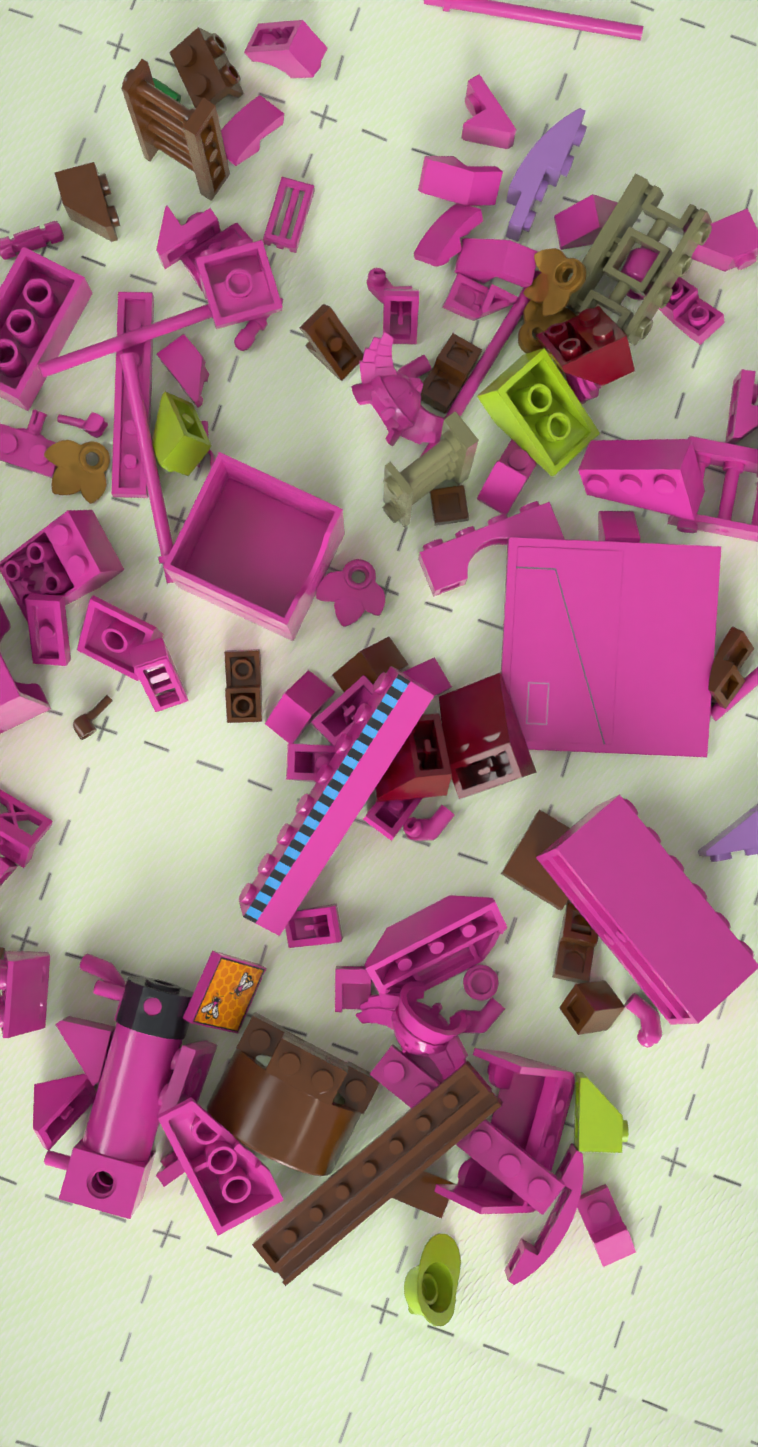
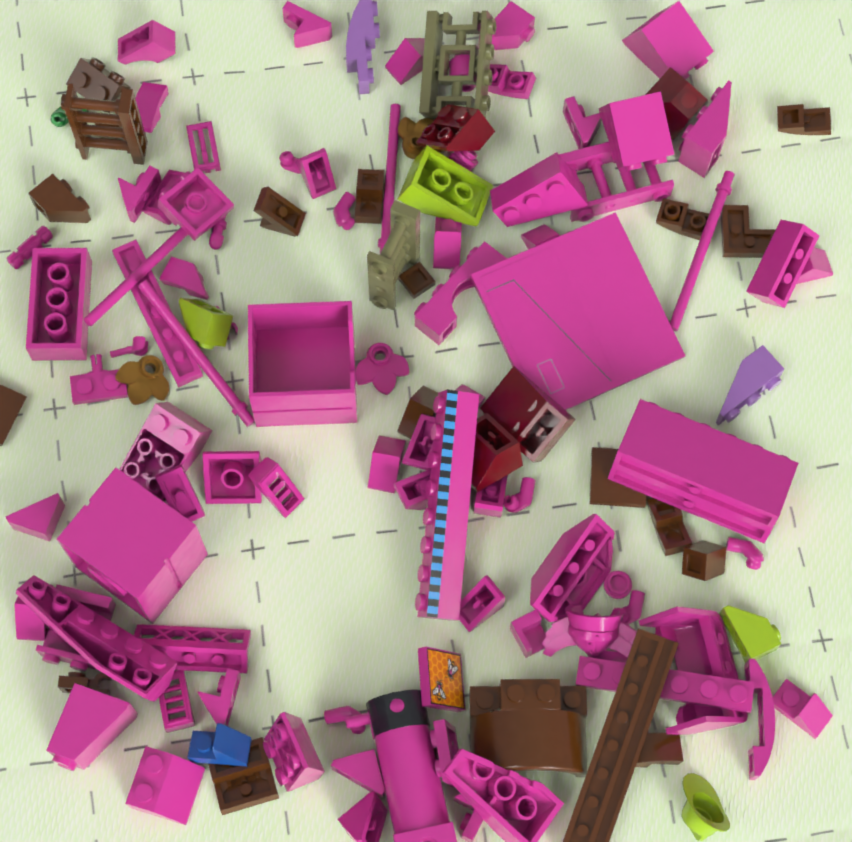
camera: 25 degrees left, 15 degrees down
(83, 724) = (238, 551): reddish brown hand -> none
(243, 686) = (339, 468): reddish brown slope -> none
(395, 396) = (344, 223): dark pink helmet -> none
(444, 235) = (319, 110): dark pink slope -> none
(456, 182) = (310, 72): dark pink slope -> none
(476, 300) = (361, 142): dark pink slope -> none
(498, 258) = (355, 111): dark pink slope -> none
(552, 284) = (408, 104): pearl gold plate -> none
(725, 675) = (663, 286): reddish brown slope -> none

